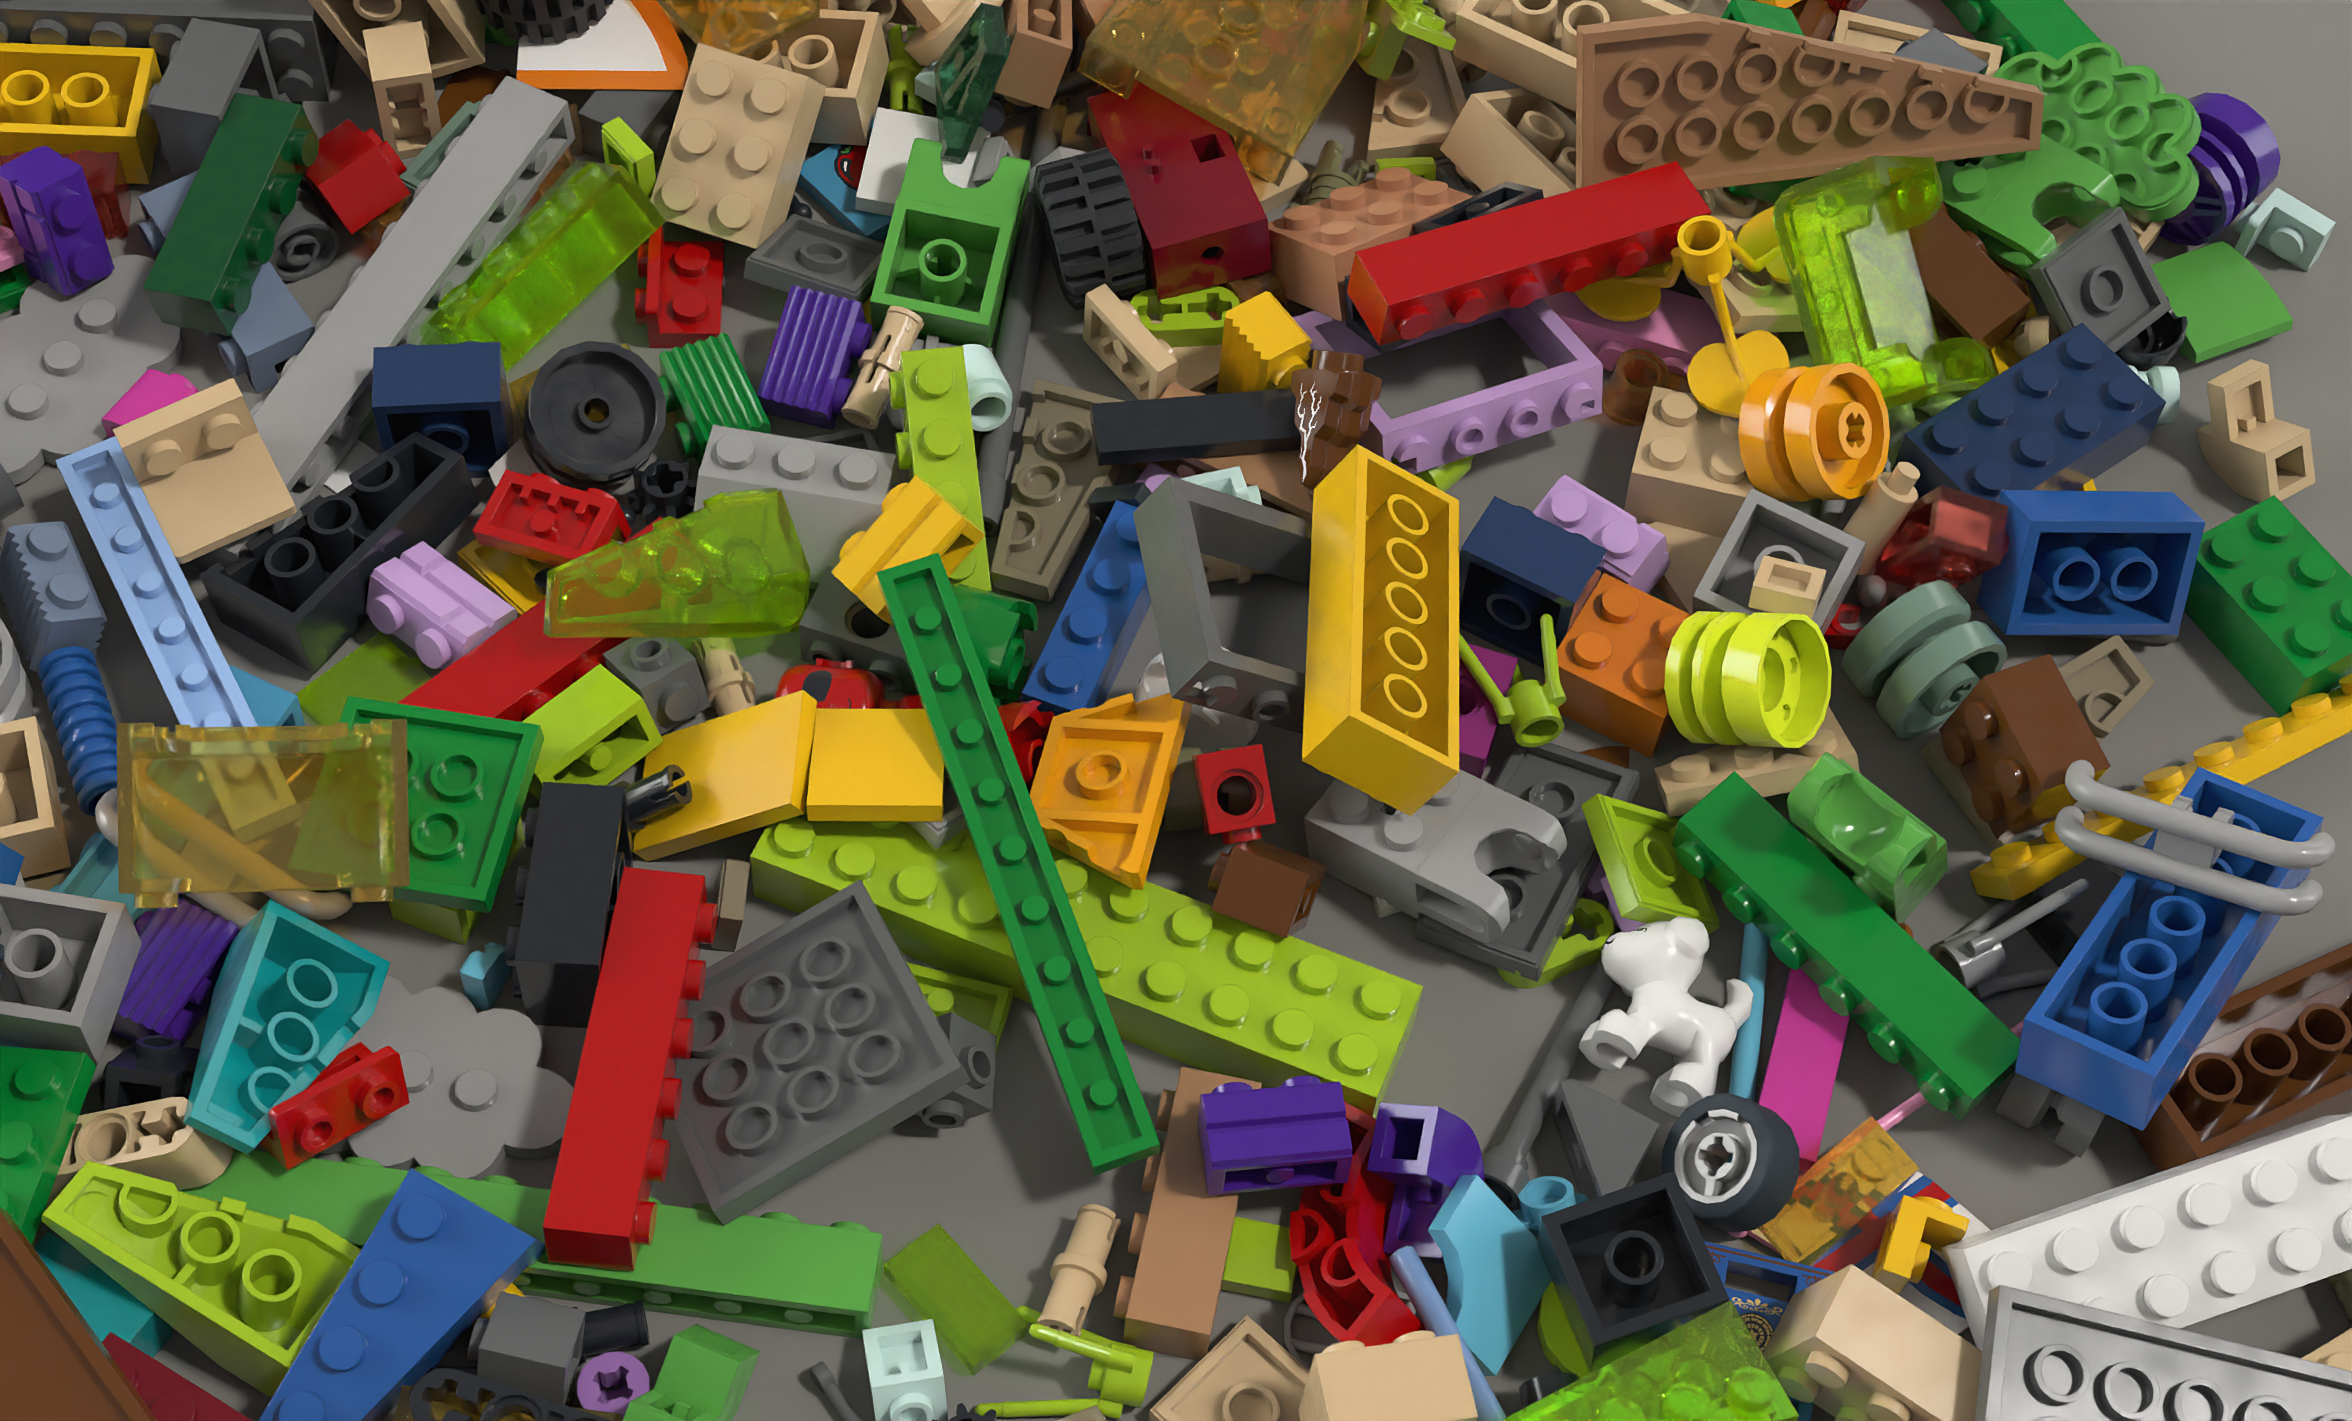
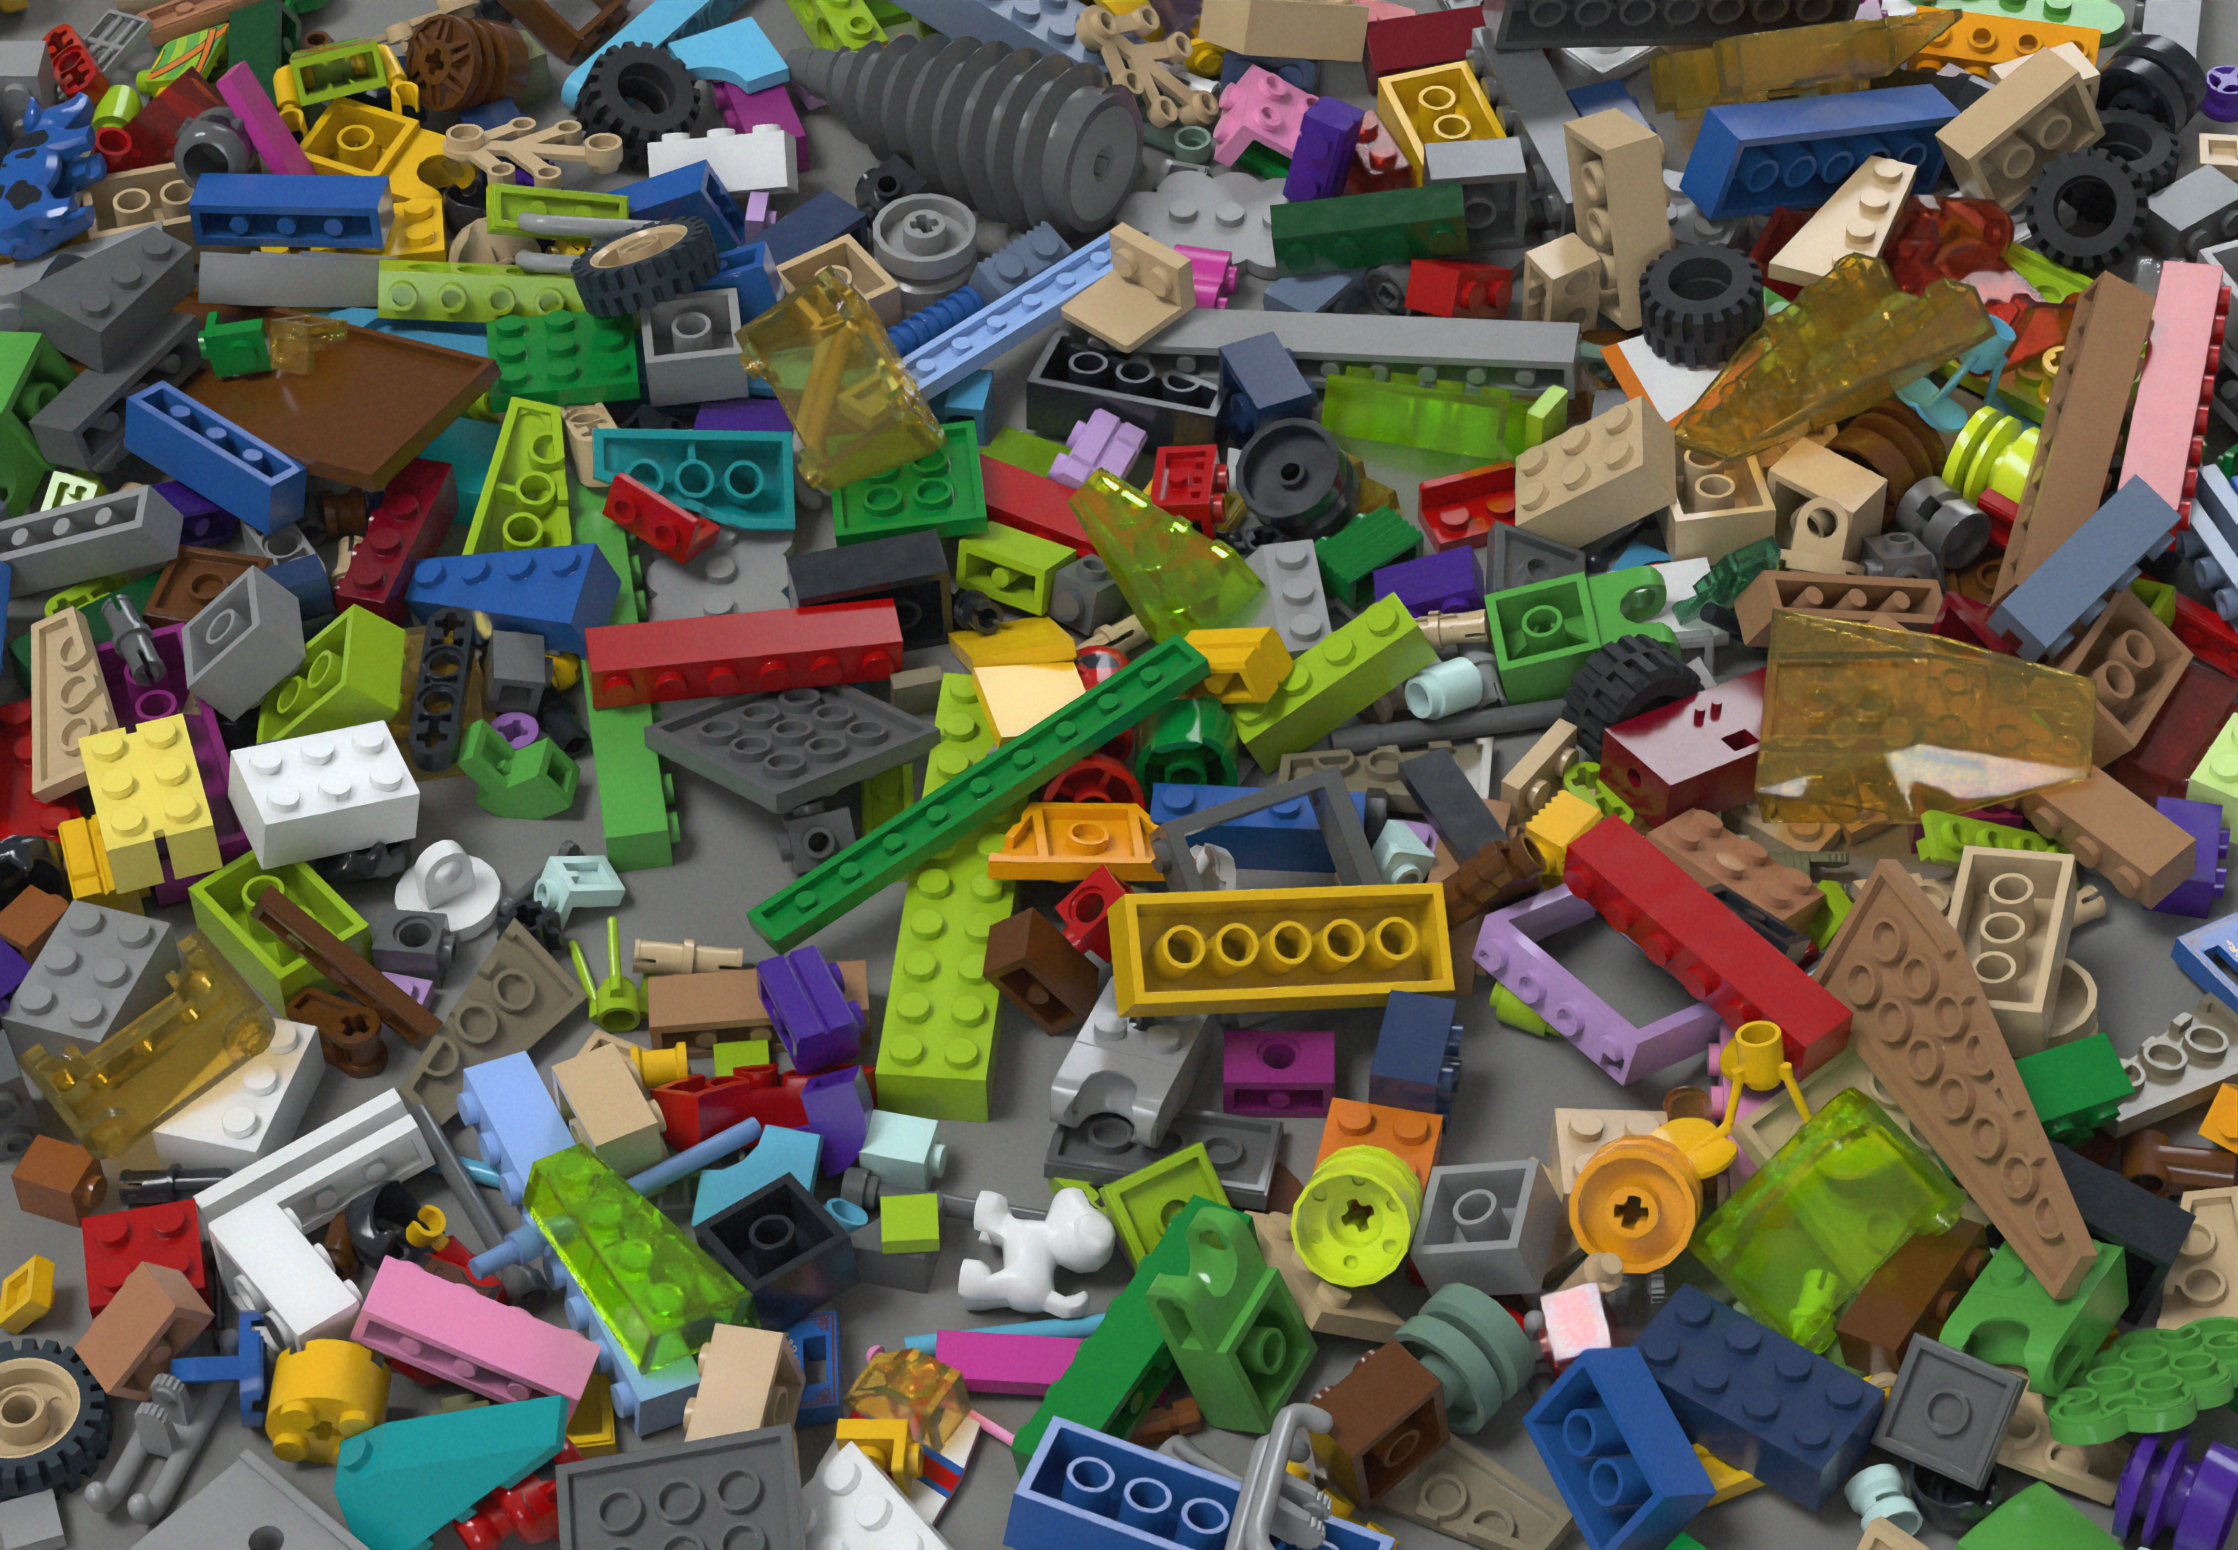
camera: 80 degrees right, 10 degrees down
(959, 1298) = (654, 902): clear neon green tile -> none
(1271, 1341) = (660, 1065): none -> yellow bush
(1478, 1097) = (903, 1150): none -> light aqua brick
(1528, 704) = (1282, 1100): lime plant -> none
(1618, 1120) = (909, 1223): none -> lime tile
(1634, 550) = (1491, 1113): lavender brick -> none
(1762, 1169) = (907, 1314): wheel -> none
(1786, 587) = (1442, 1203): tan plate -> none

